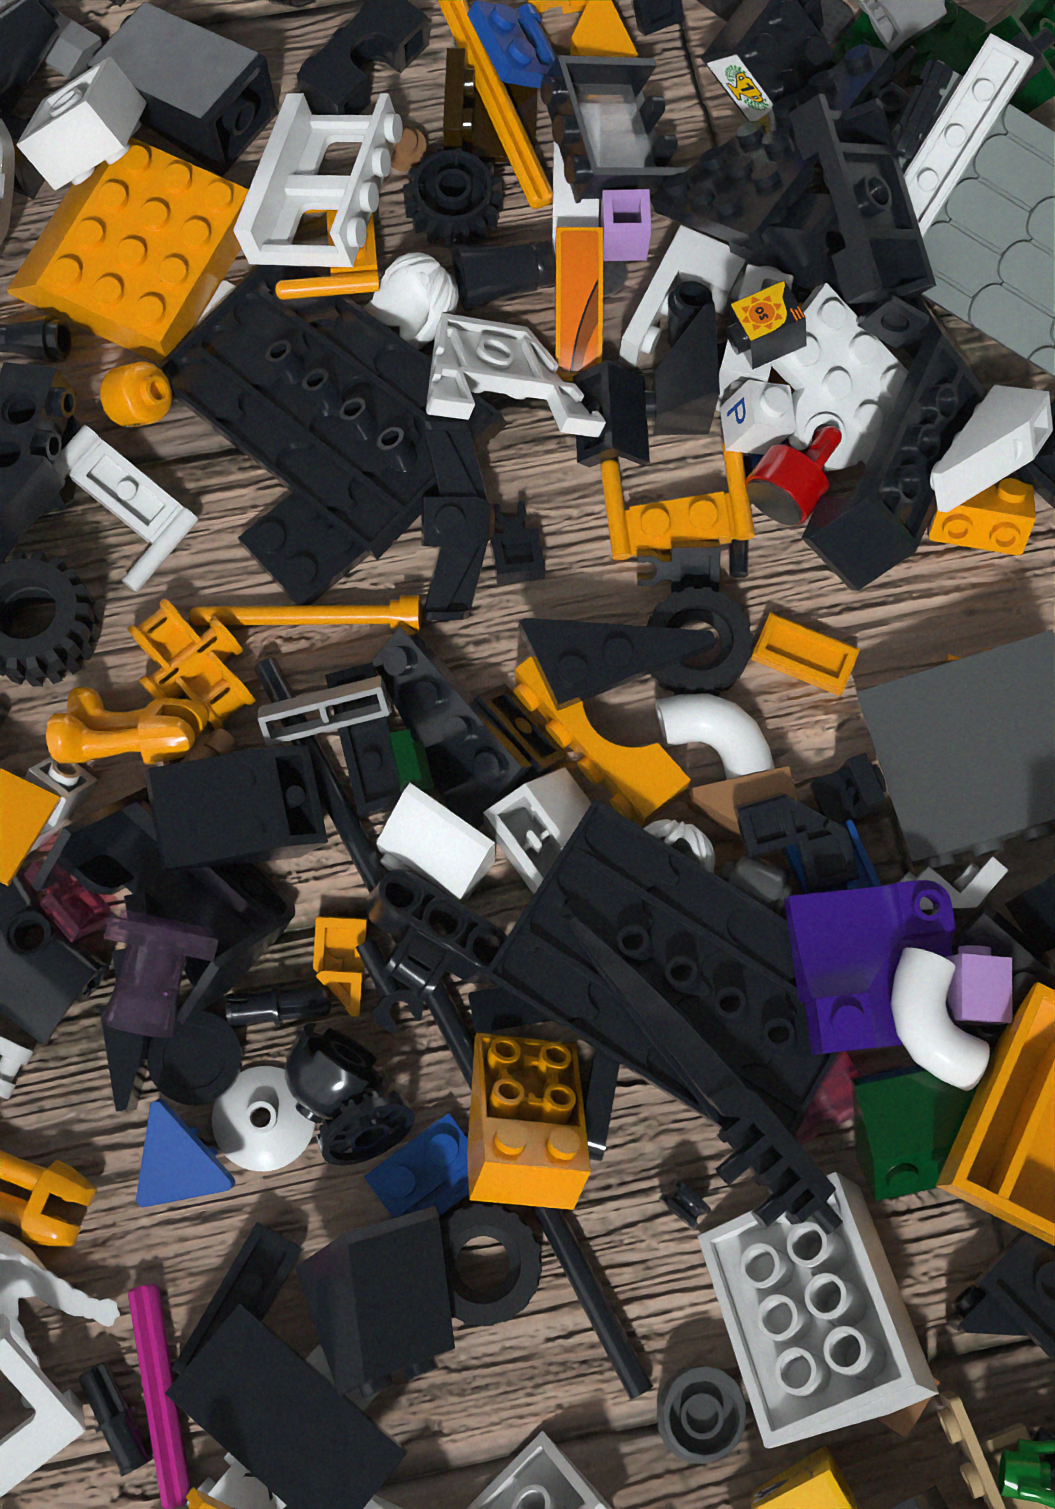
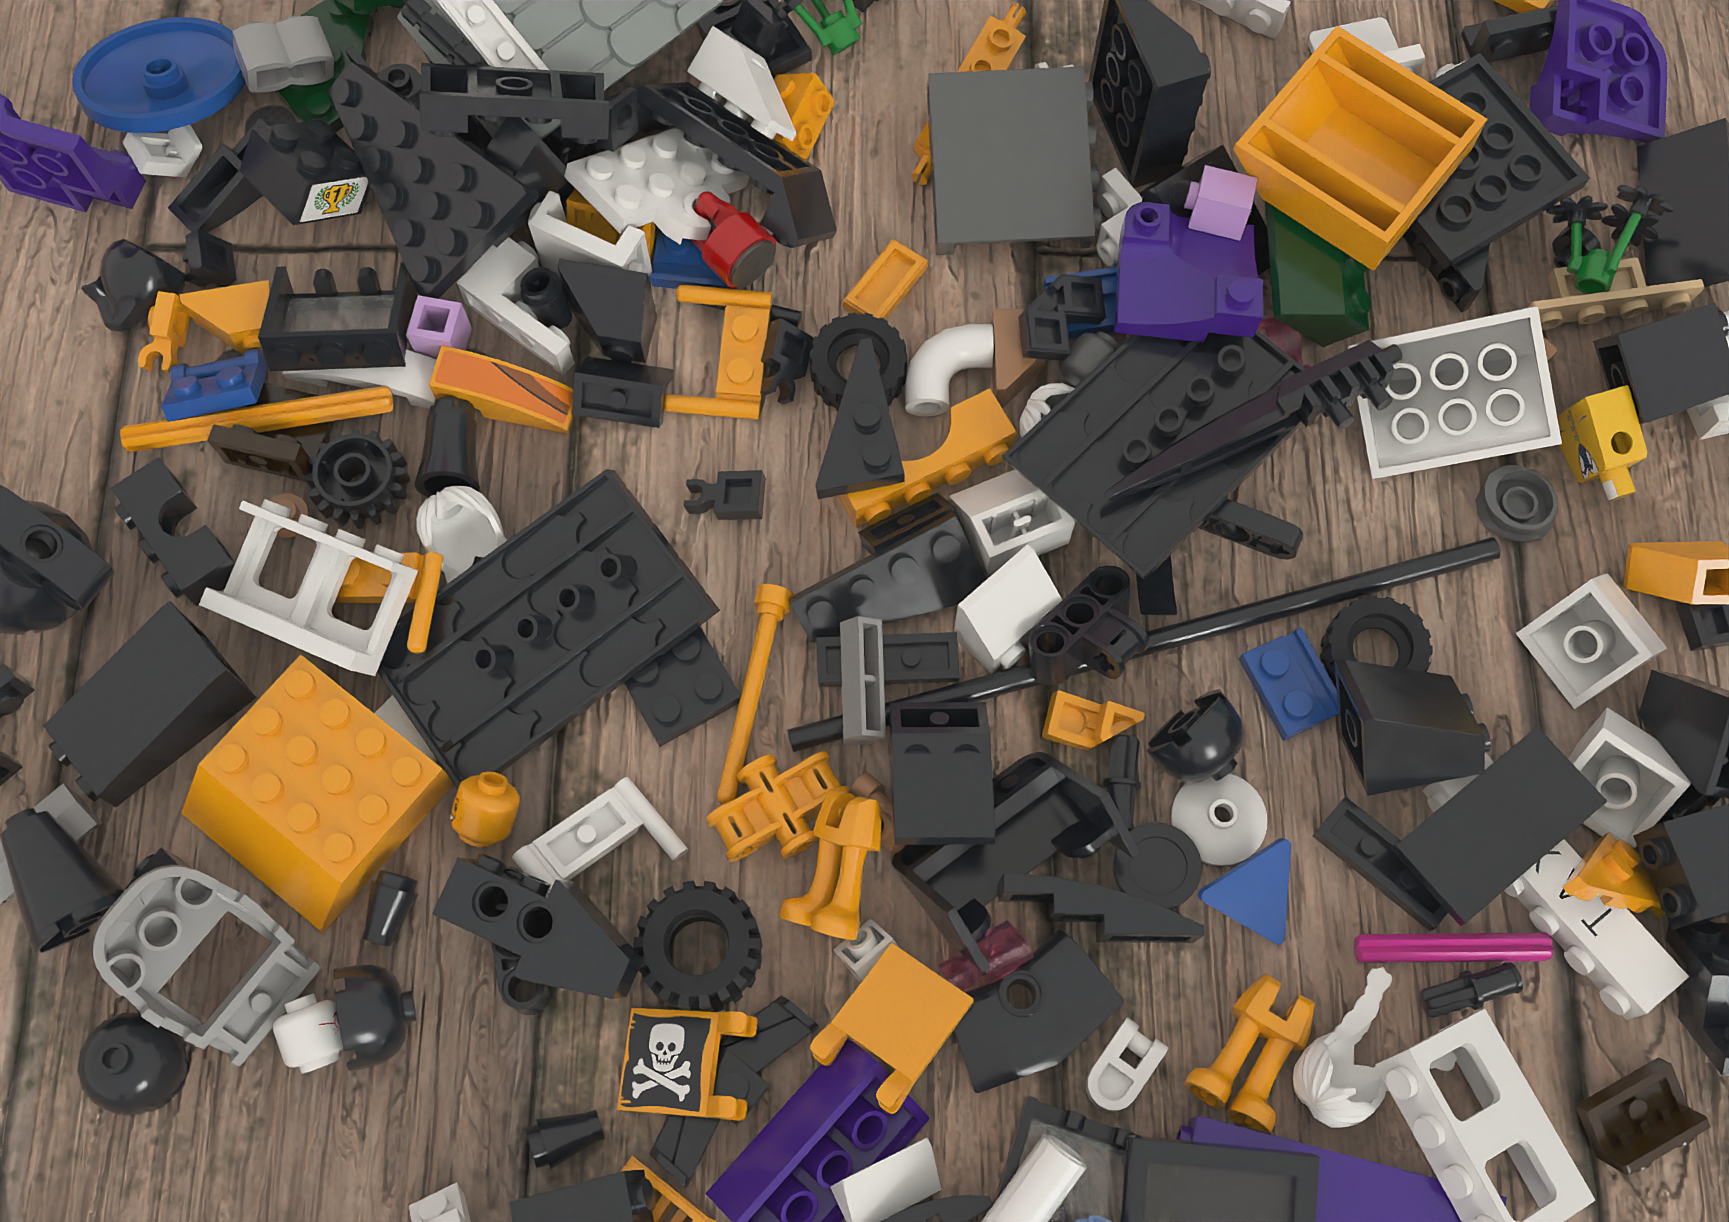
camera: 75 degrees left, 5 degrees down
(83, 125) = (176, 801): white brick -> none
(152, 970) = (1086, 861): clear purple plant -> none
(365, 1128) = (1251, 716): black wheel -> none
(388, 988) = (1125, 684): black bar -> none
(410, 762) = (931, 613): dark green slope -> none
(456, 521) = (700, 534): black plate -> none
(500, 359) = (546, 467): white wing -> none
(526, 1123) = (1266, 583): light orange slope -> none
(684, 1203) = (1347, 479): black bush -> none
(757, 417) = (670, 257): white brick -> none
(767, 325) = (602, 212): brick -> none
(850, 791) = (1019, 270): black bracket -> none
(924, 1022) = (1245, 241): white cylinder -> none

